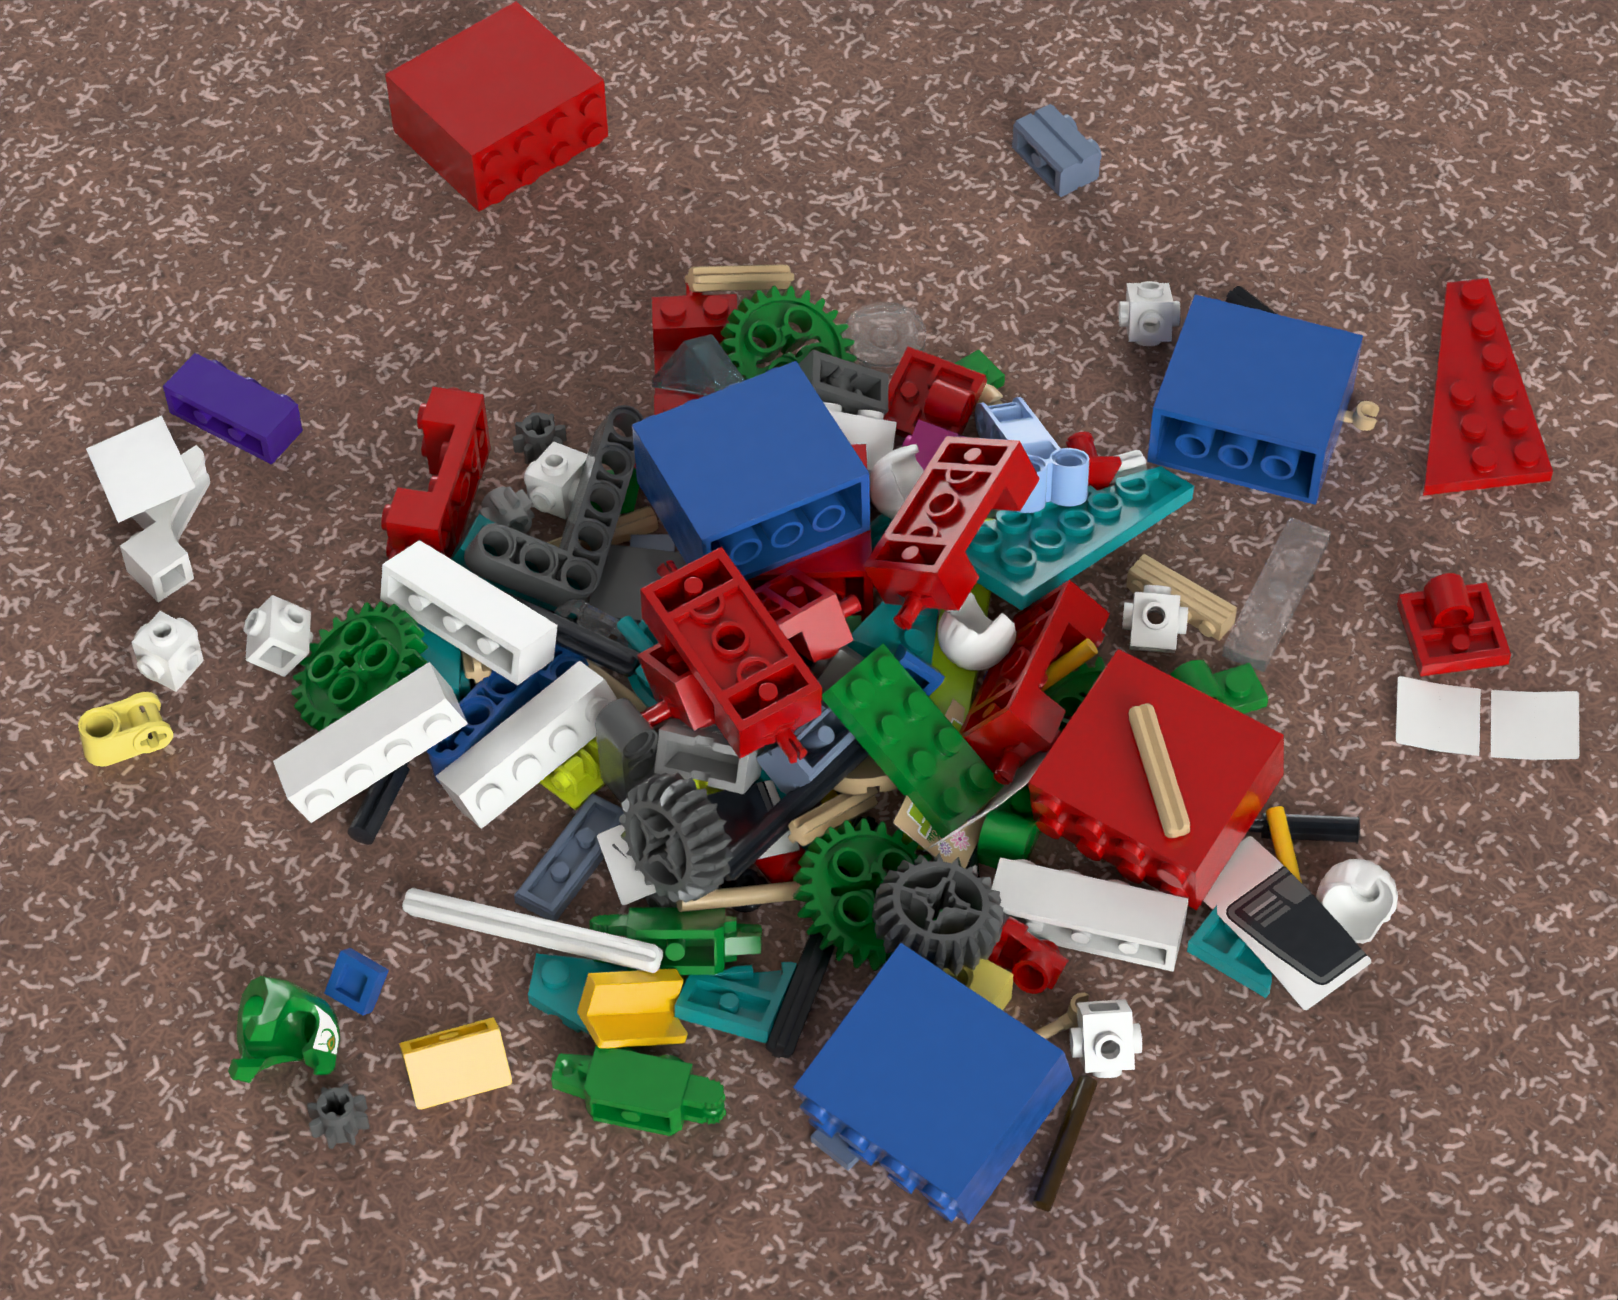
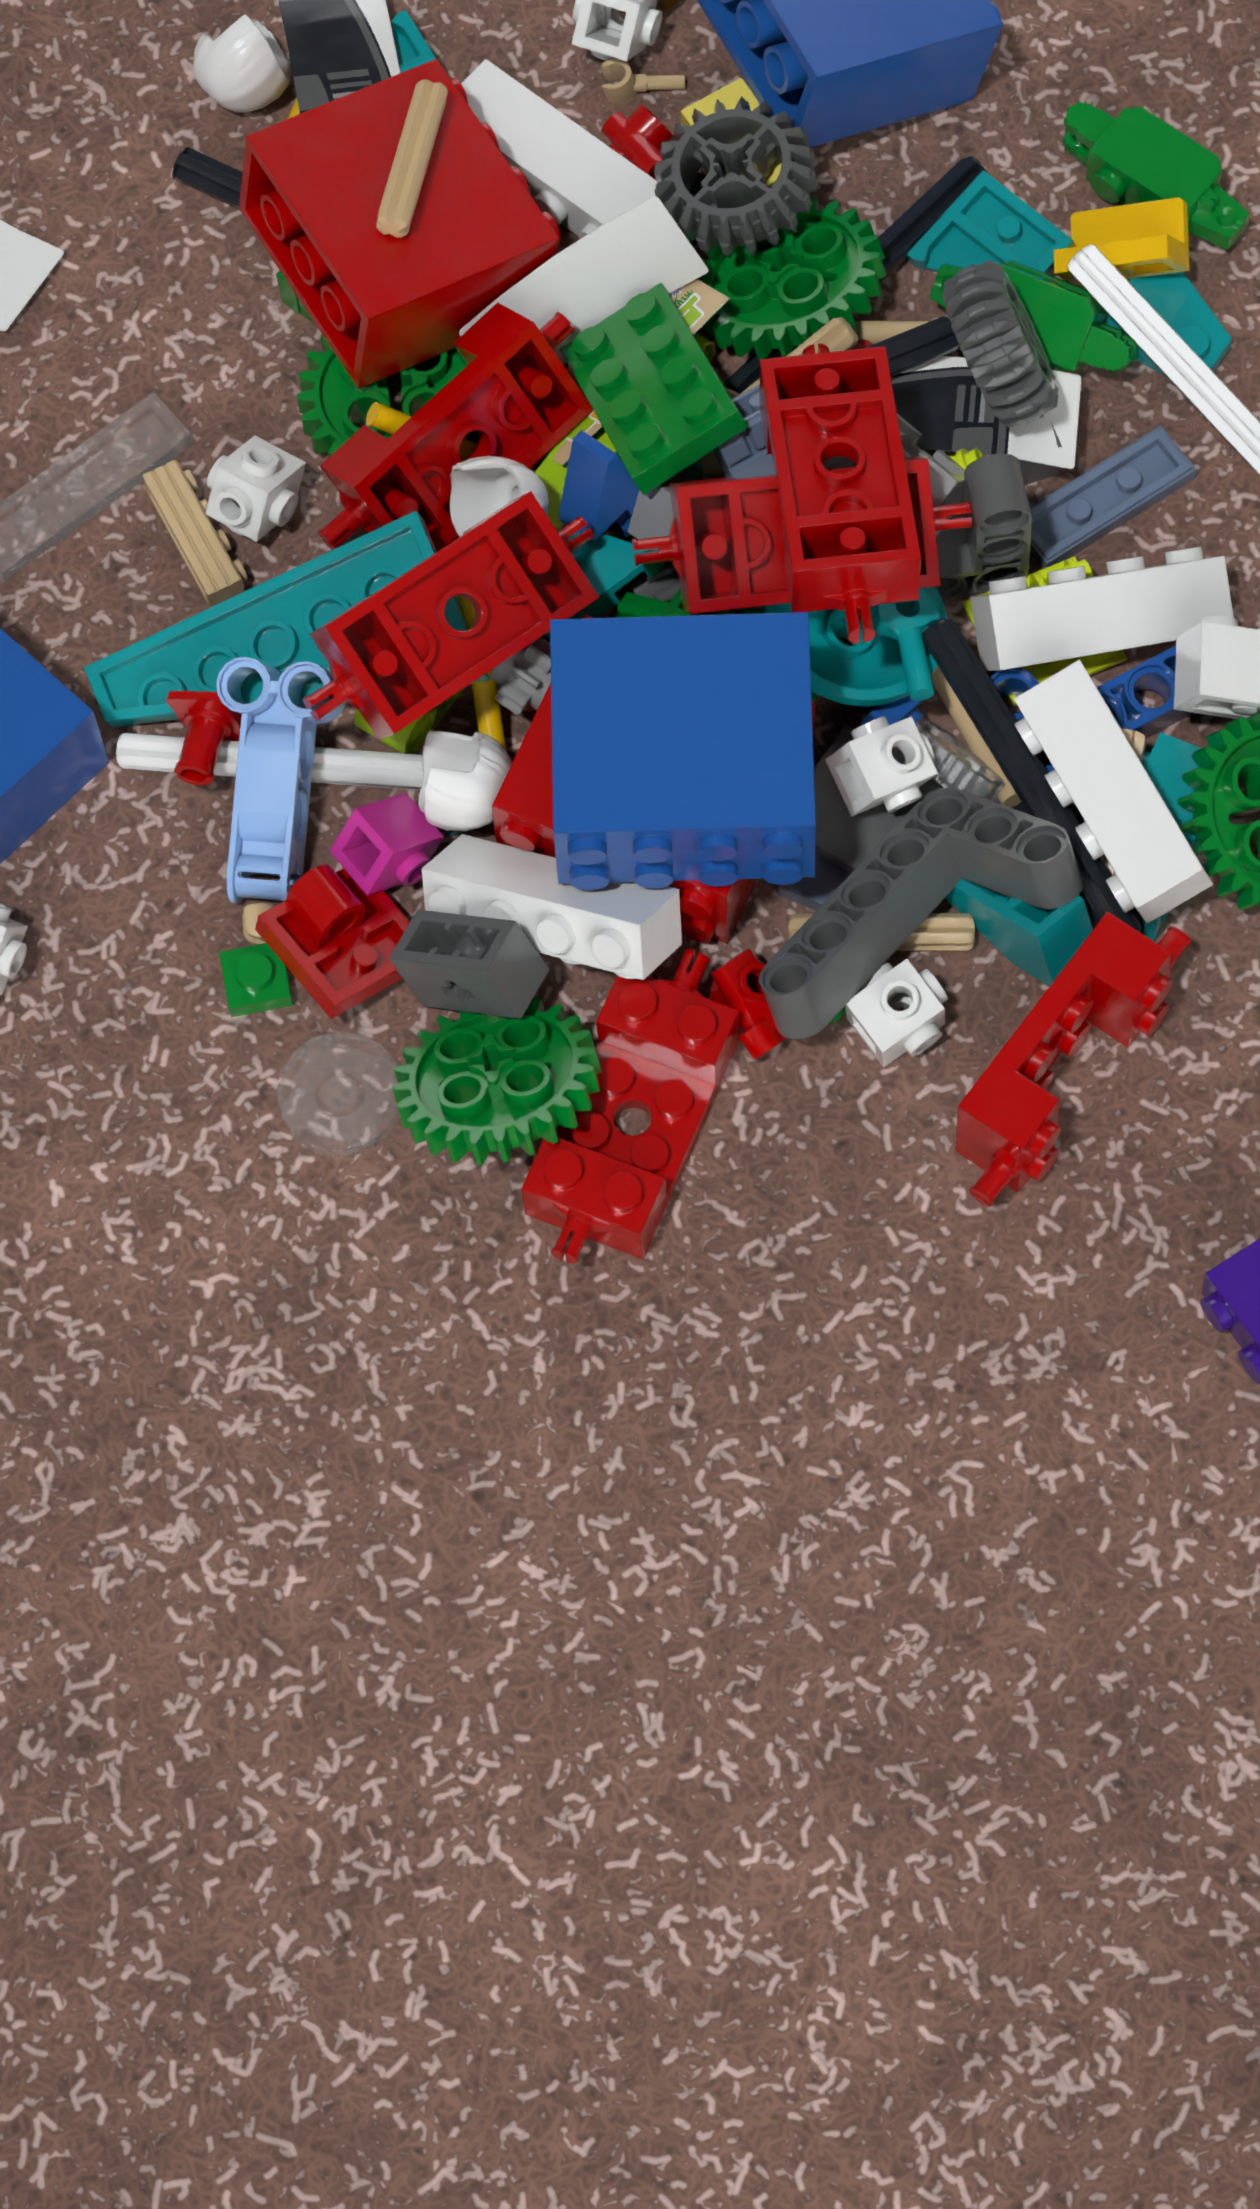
camera: 150 degrees left, 15 degrees up
(497, 105) = (698, 1715): red brick -> none
(508, 508) = (985, 998): light grey gear -> none
(536, 435) = (893, 1125): dark grey gear -> none
(623, 574) = (882, 765): none -> white brick
(698, 368) = (639, 1065): clear light blue slope -> none
(738, 277) = (497, 1238): tan axle -> none
(1234, 687) = (244, 392): green plate -> none

